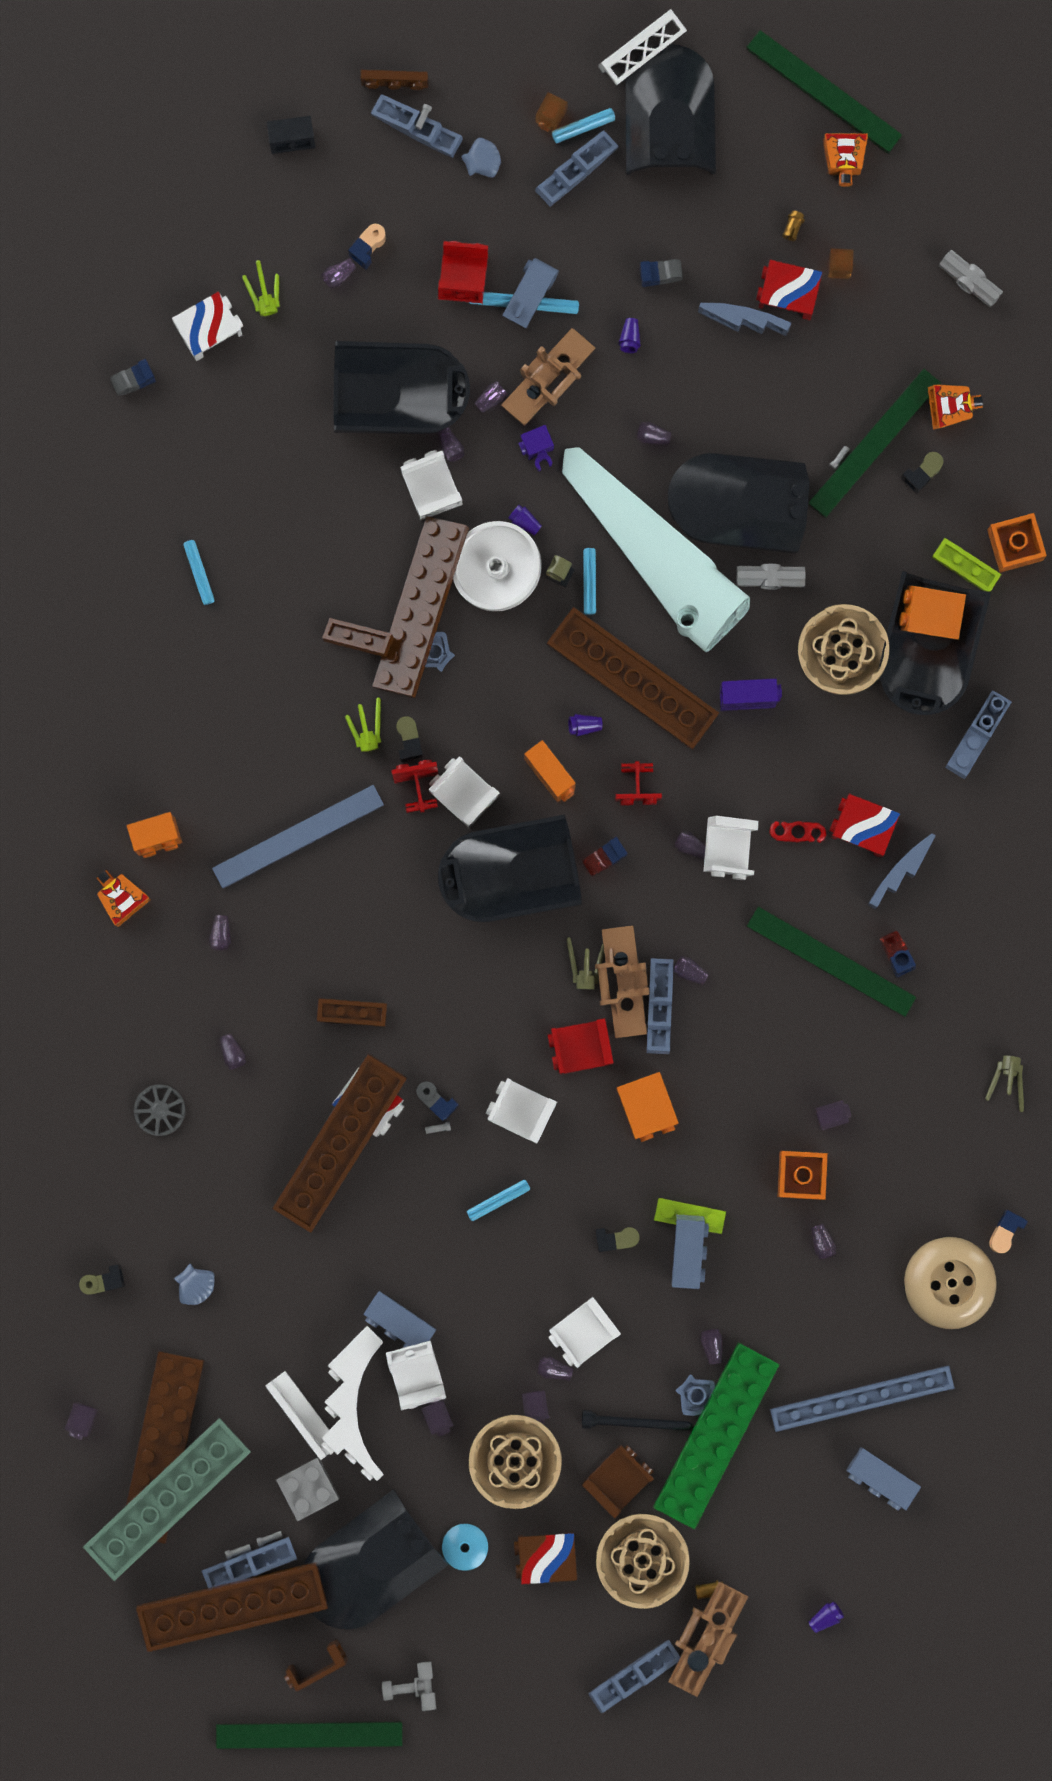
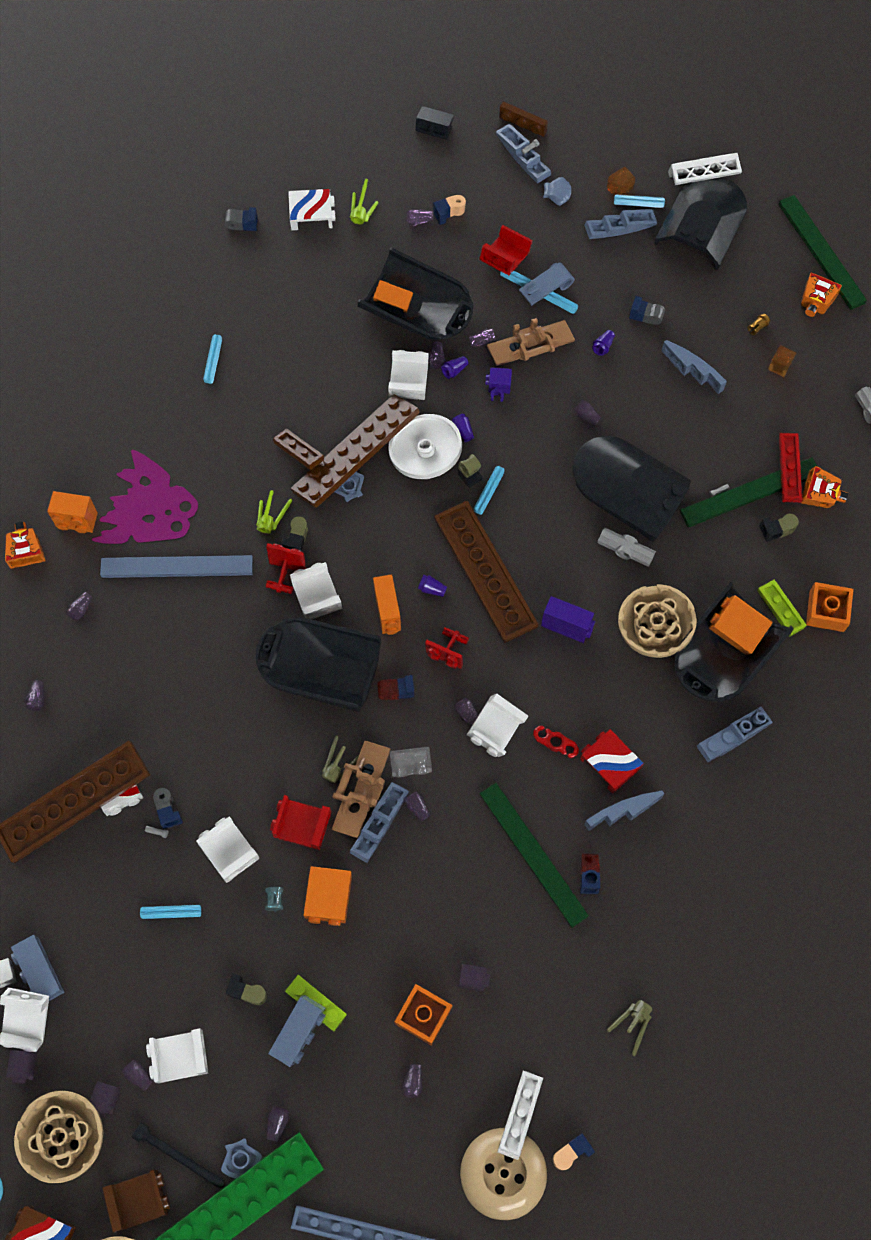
camera: 25 degrees right, 15 degrees down
(220, 777) = (147, 500): none -> magenta piece
(352, 1012) = (141, 710): reddish brown plate -> none
(365, 398) = (393, 295): none -> orange hinge
(477, 449) = (454, 367): none -> dark purple cone
(595, 1136) = (271, 892): none -> clear light blue bush
(660, 928) = (410, 762): none -> clear brick
(665, 559) = (557, 511): light aqua panel -> none
(789, 288) = (737, 360): panel -> none
(906, 394) = (790, 467): none -> red tile
(941, 1222) = (520, 1115): none -> white tile

